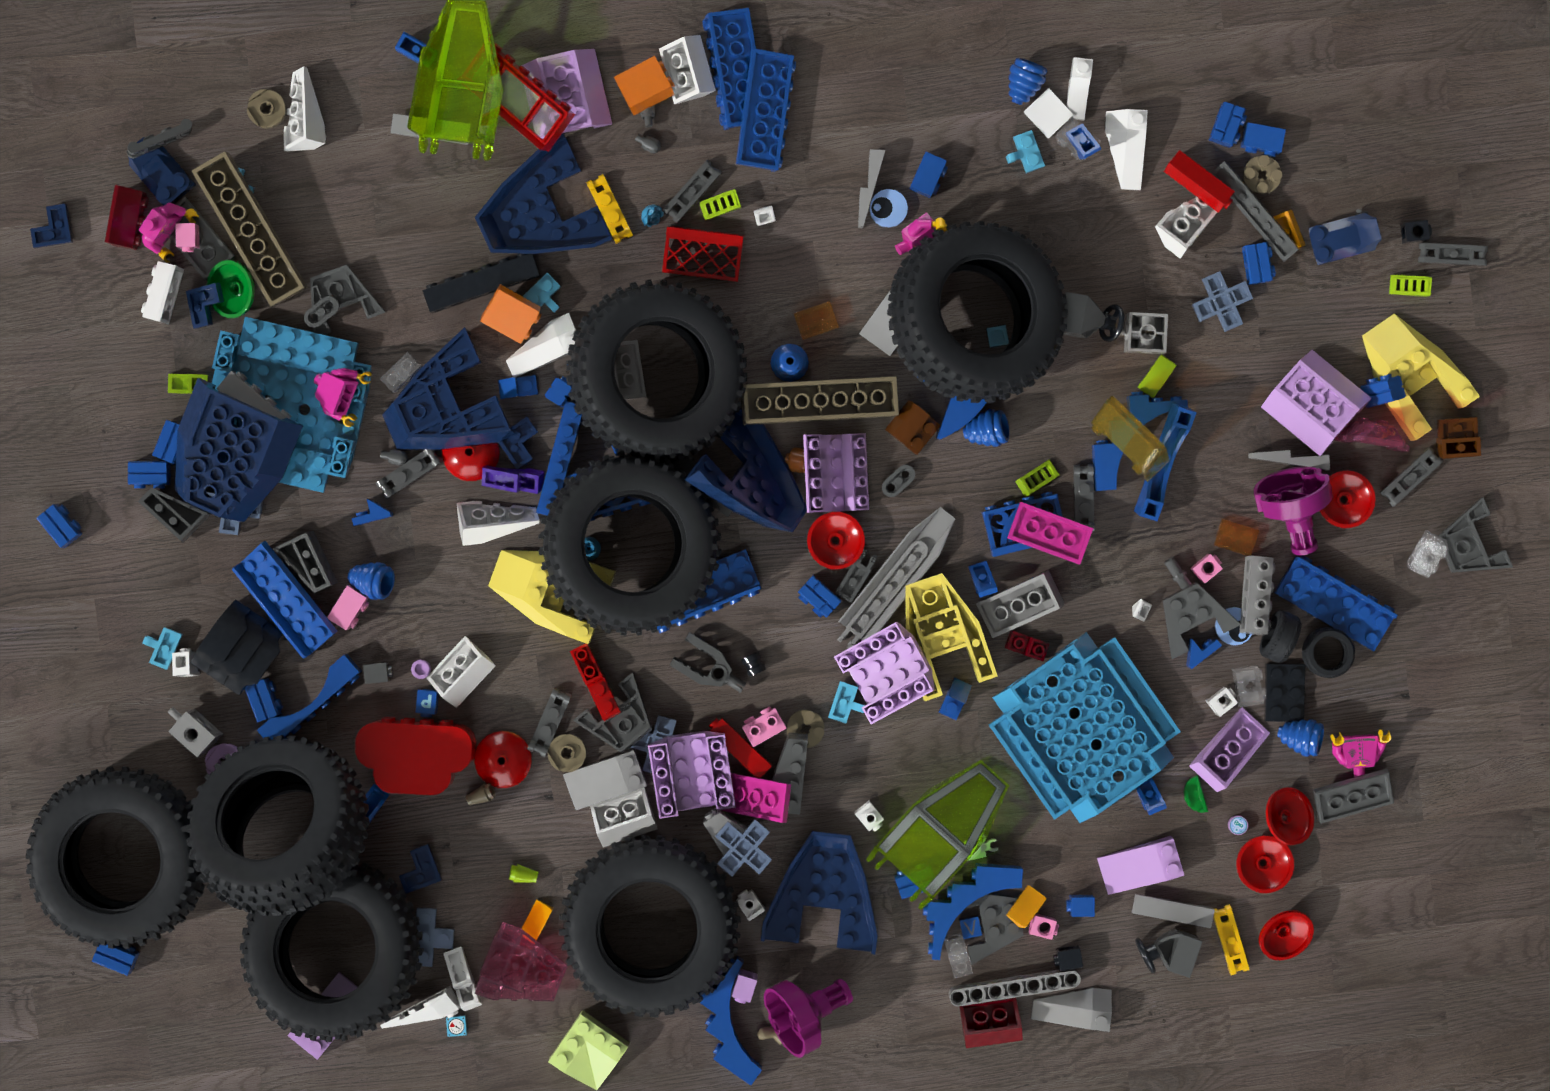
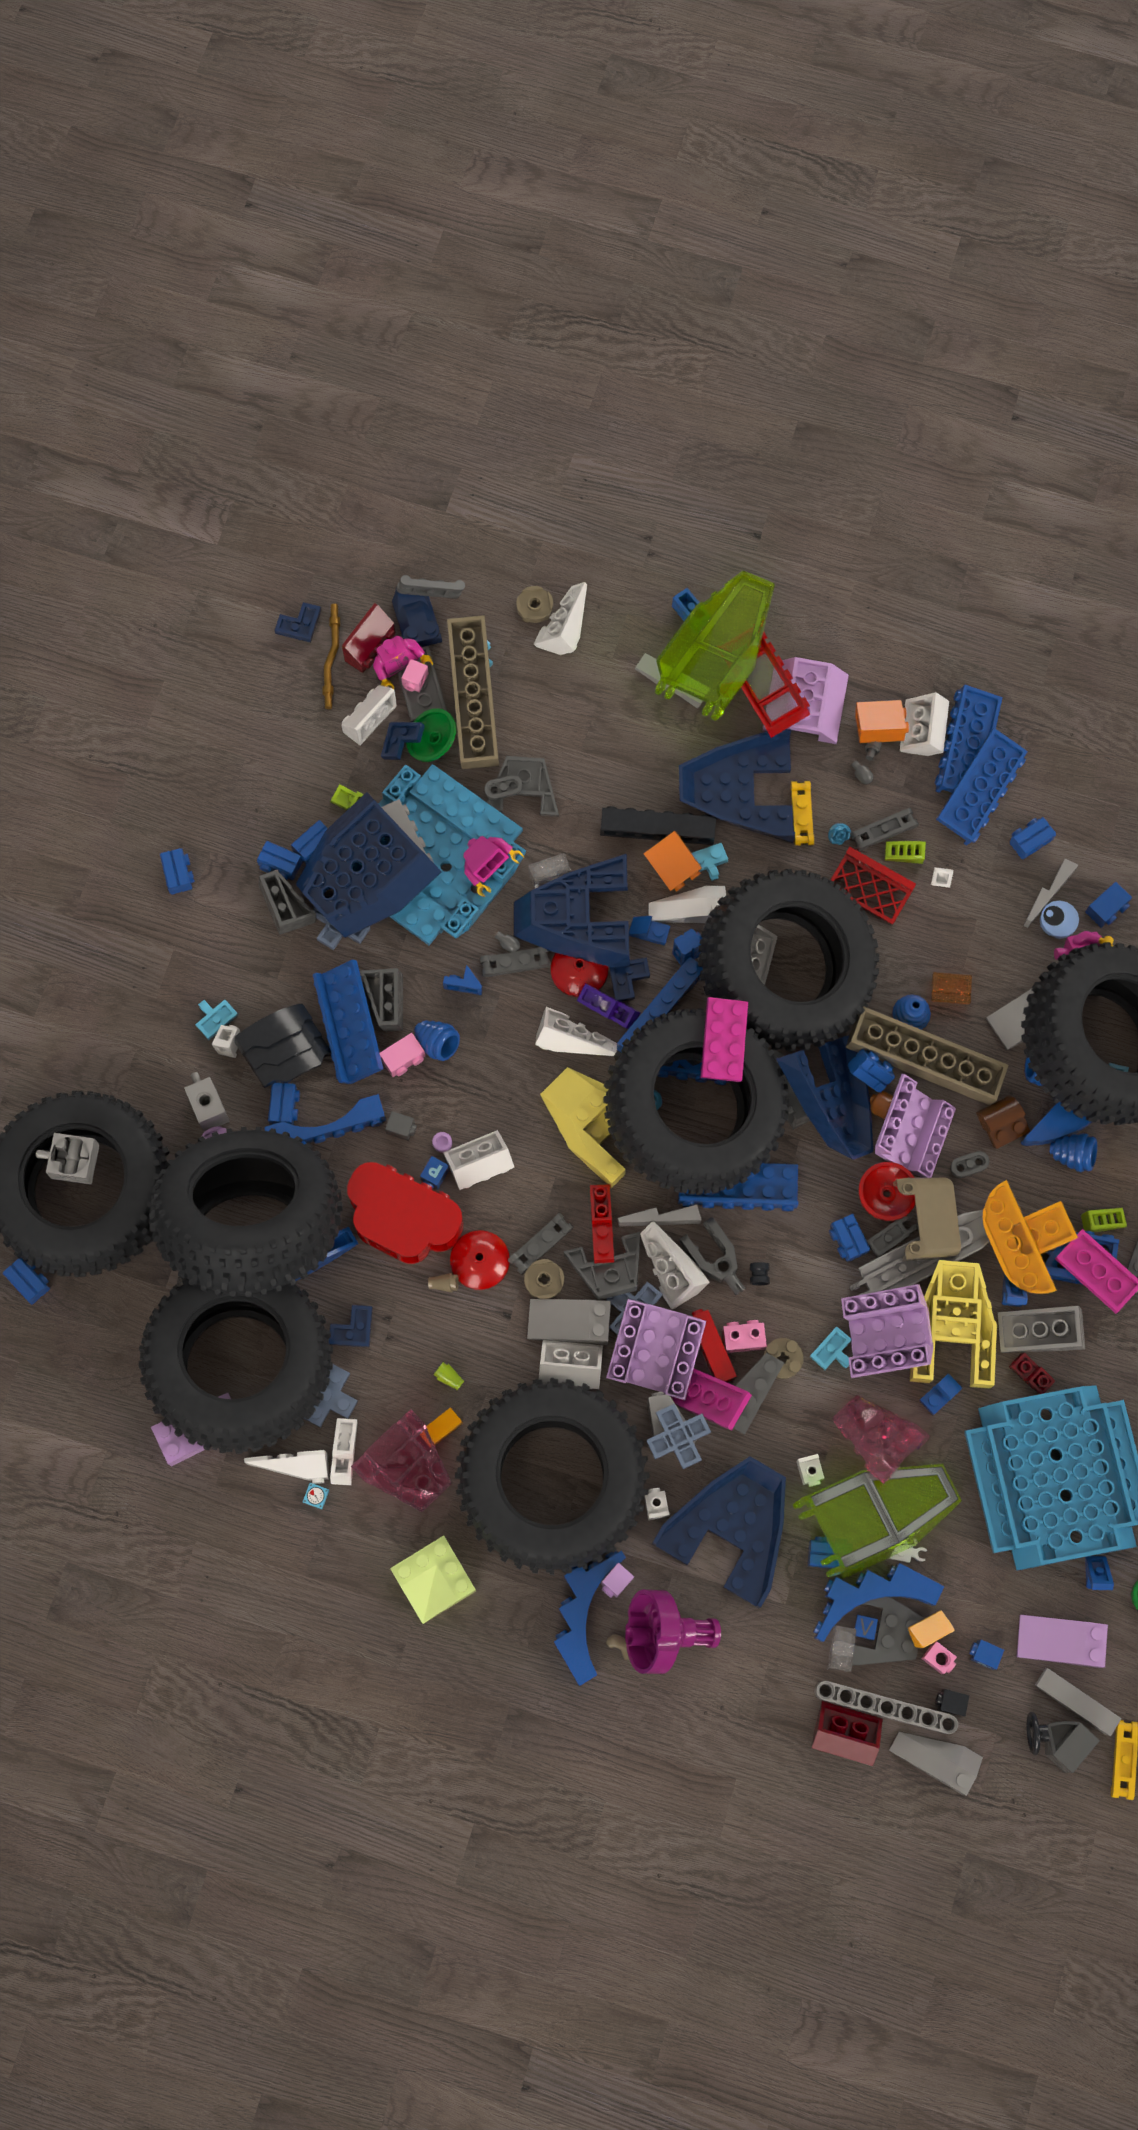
camera: 25 degrees right, 15 degrees down
(86, 213) = (328, 689): none -> pearl gold bar
(101, 850) = (71, 1158): none -> light grey piece
(630, 485) = (724, 1039): none -> dark pink plate
(637, 655) = (686, 1215): none -> light grey slope
(679, 694) = (676, 1271): none -> white wedge
(775, 437) = (871, 1070): none -> blue brick
(832, 139) = (1032, 837): none -> blue brick
(885, 547) = (935, 1218): none -> dark tan windscreen
(916, 762) = (879, 1435): none -> clear pink wedge
(971, 533) = (1022, 1240): none -> light orange plate

